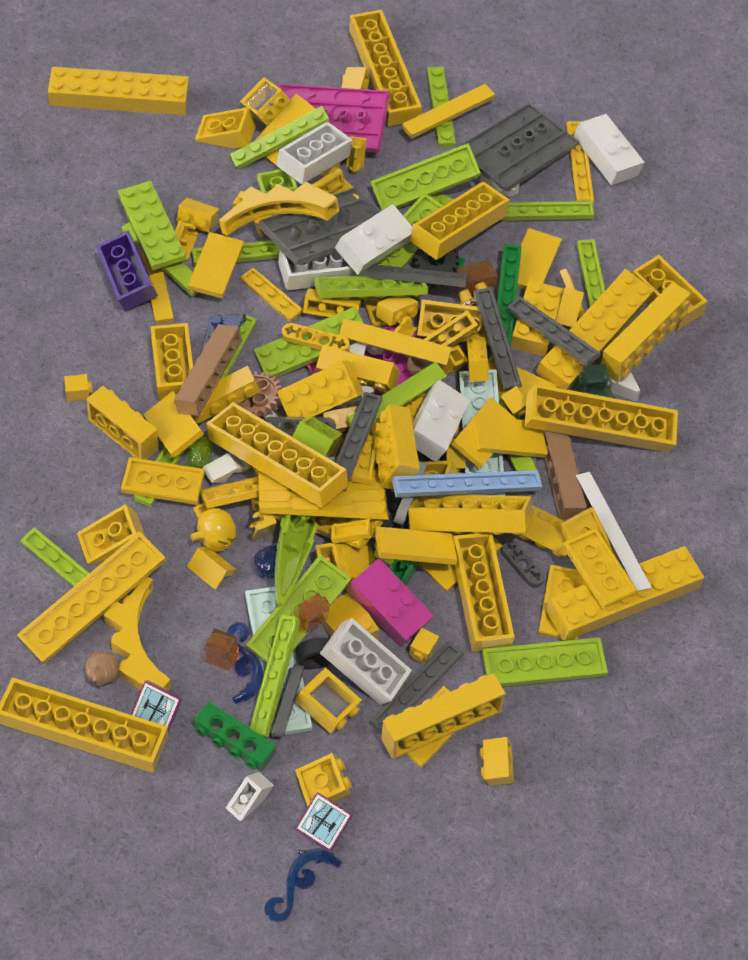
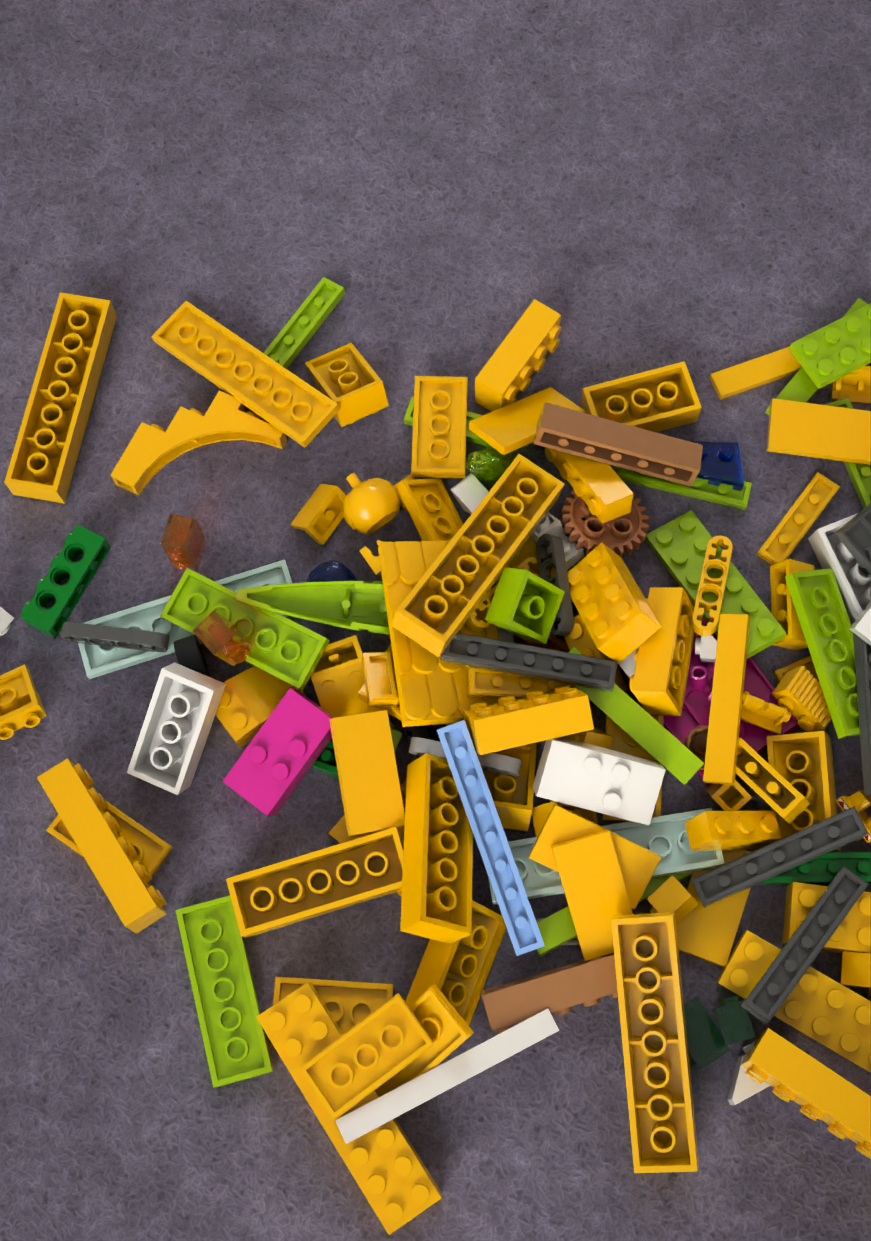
camera: 90 degrees right, 15 degrees up
(77, 387) = (573, 297): yellow brick -> none
(102, 668) = (145, 404): medium nougat hair -> none
(126, 270) = (780, 316): dark purple brick -> none
(156, 704) = (94, 478): tile -> none
(240, 666) = (174, 573): clear blue plant -> none
(275, 675) = (143, 611): lime tile -> none
(328, 701) = (120, 692): yellow window -> none
(419, 683) = (169, 812): dark grey tile -> none
(423, 645) = (228, 810): yellow brick -> none
(497, 761) = (51, 934): yellow brick -> none
(521, 555) = (367, 952): dark grey beam -> none

